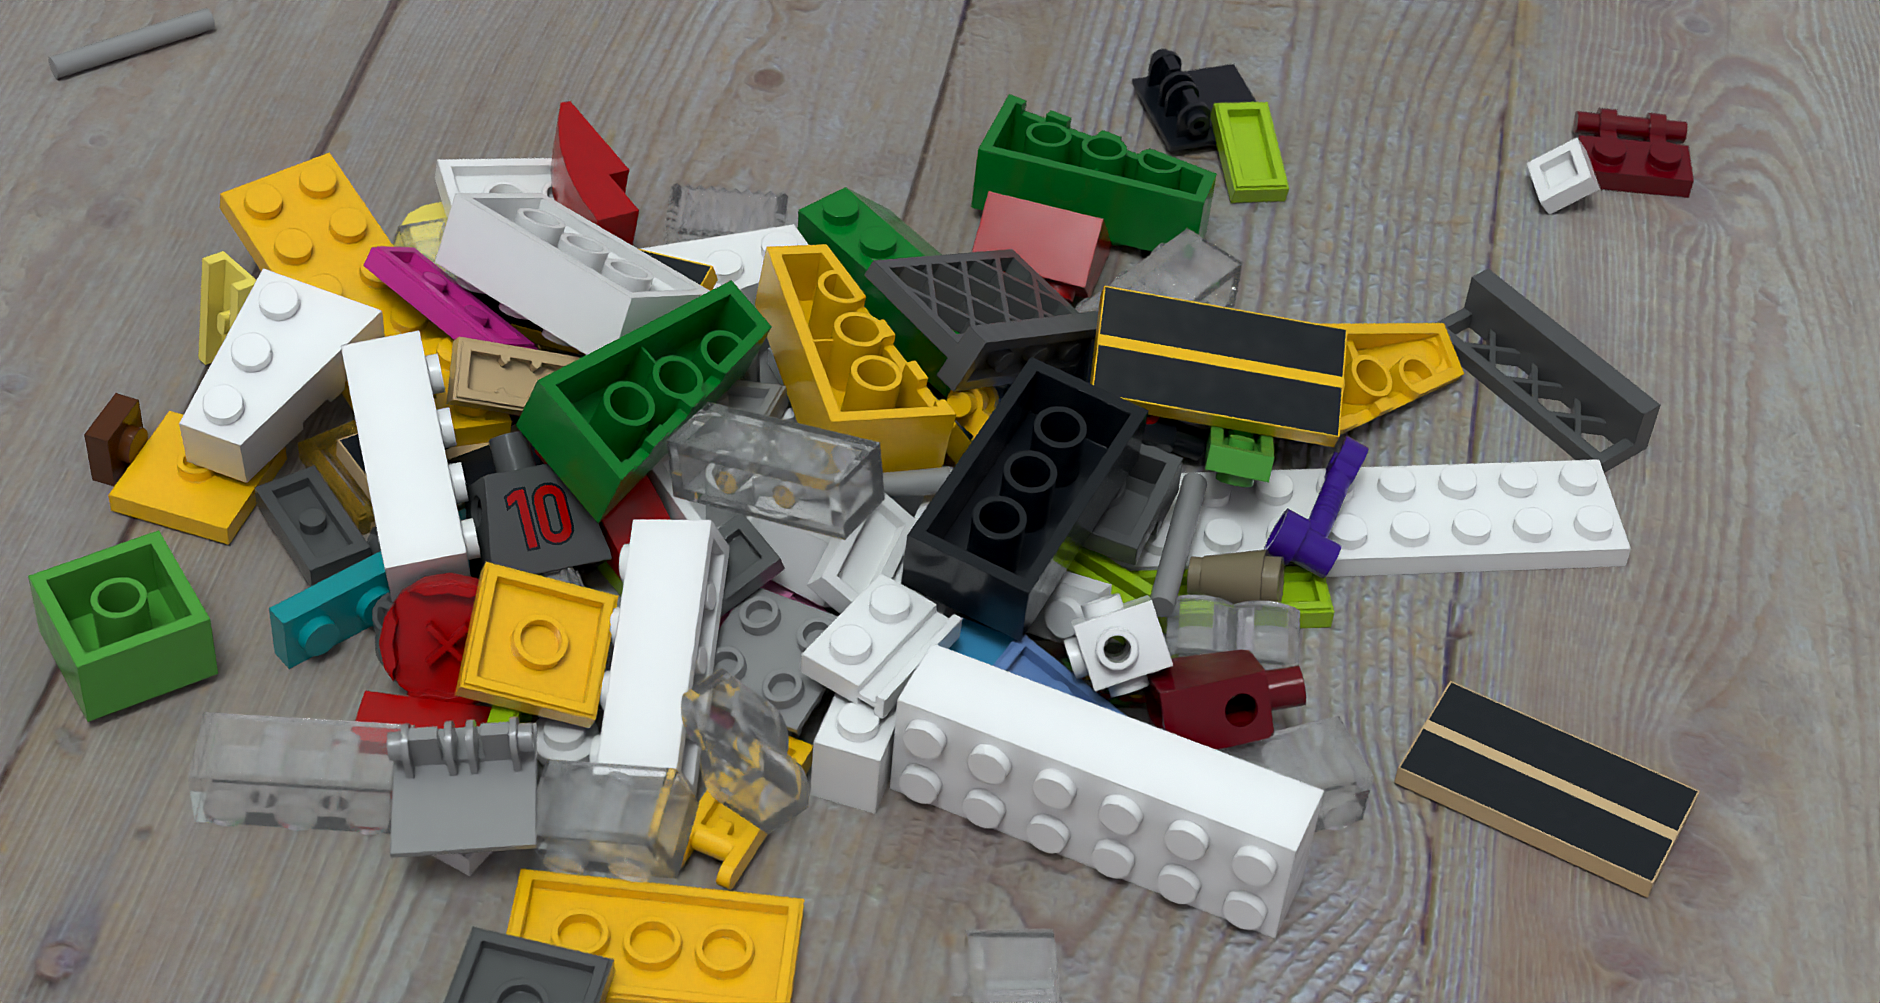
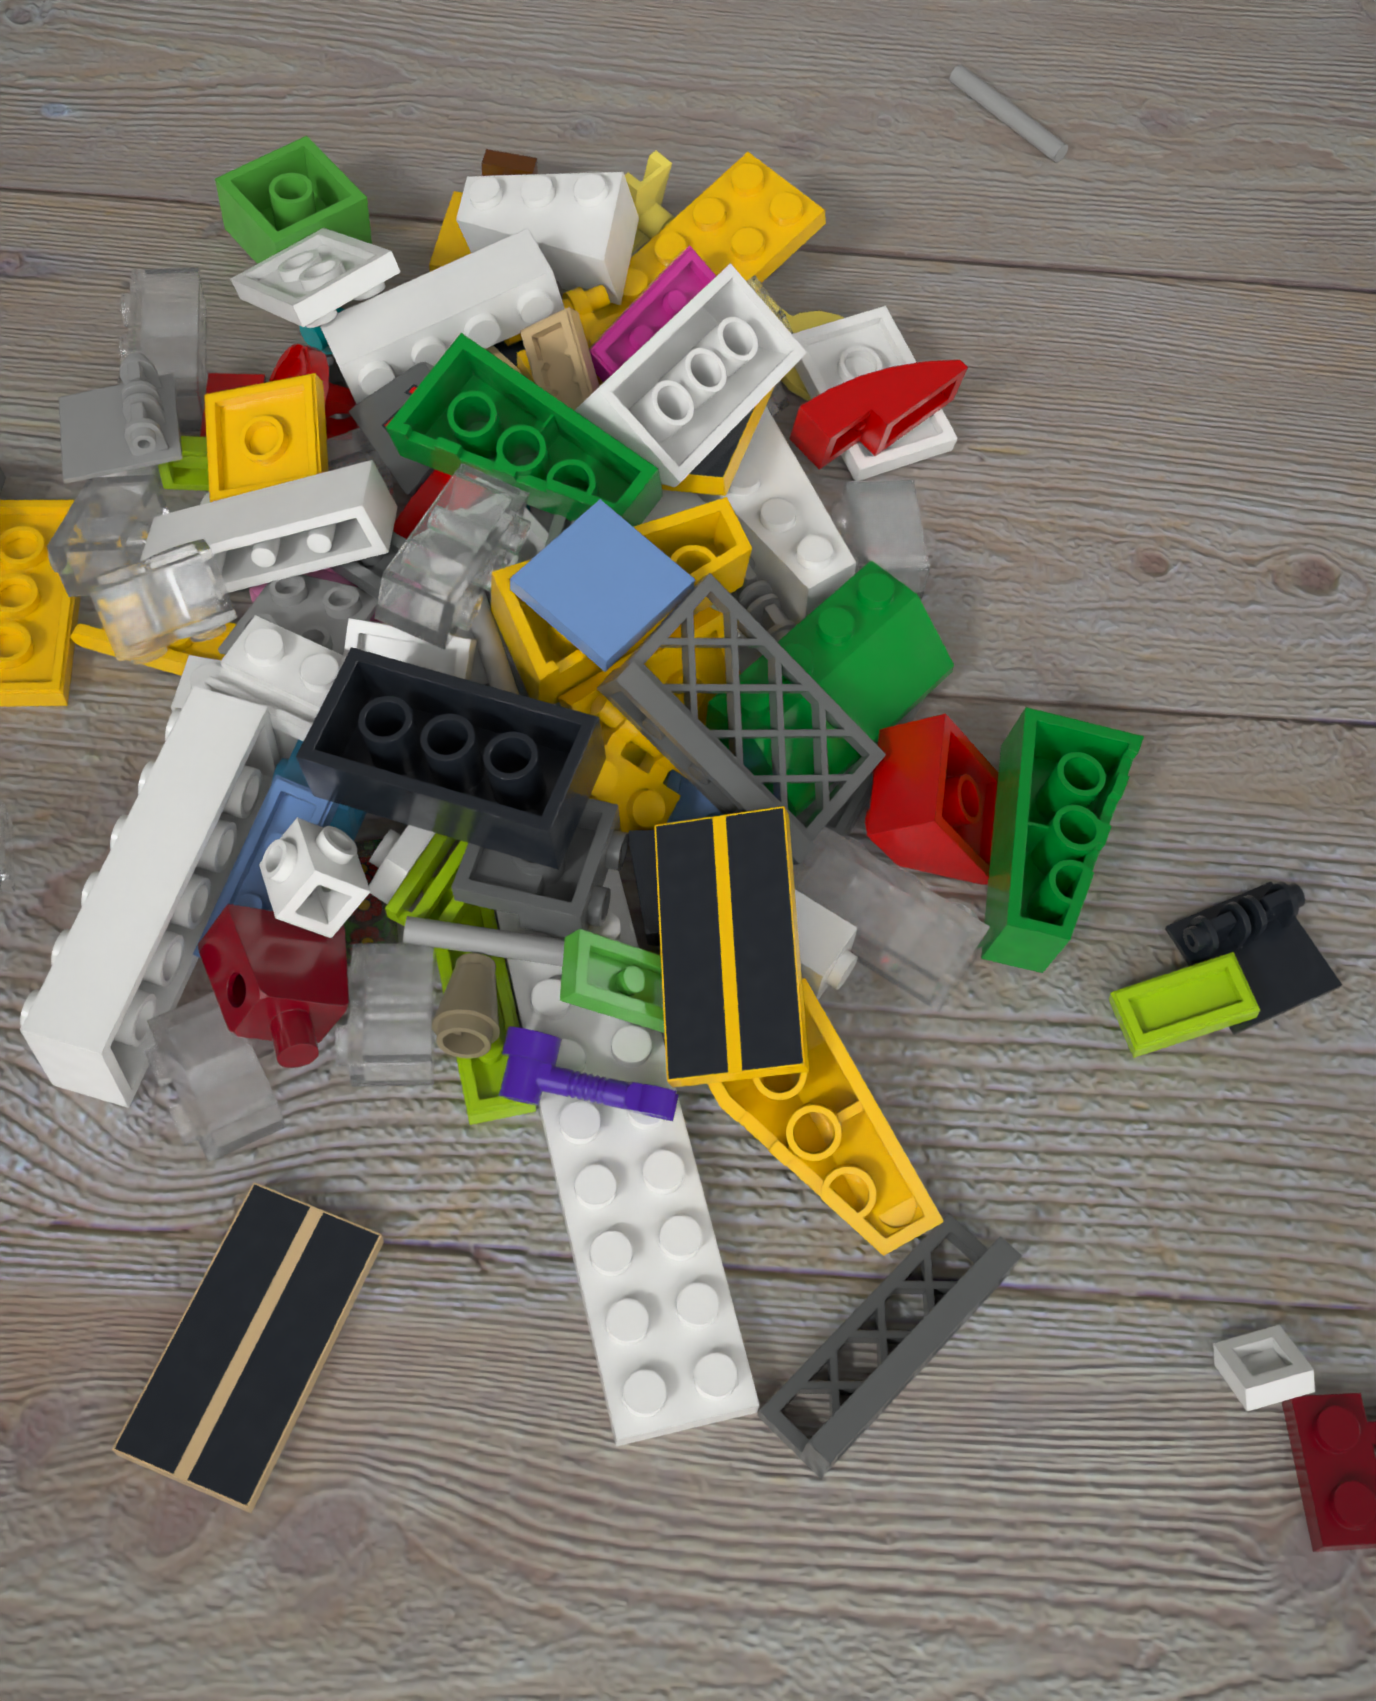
camera: 80 degrees right, 15 degrees up
(300, 573) = (316, 277): none -> white plate
(865, 342) = (602, 584): none -> medium blue tile

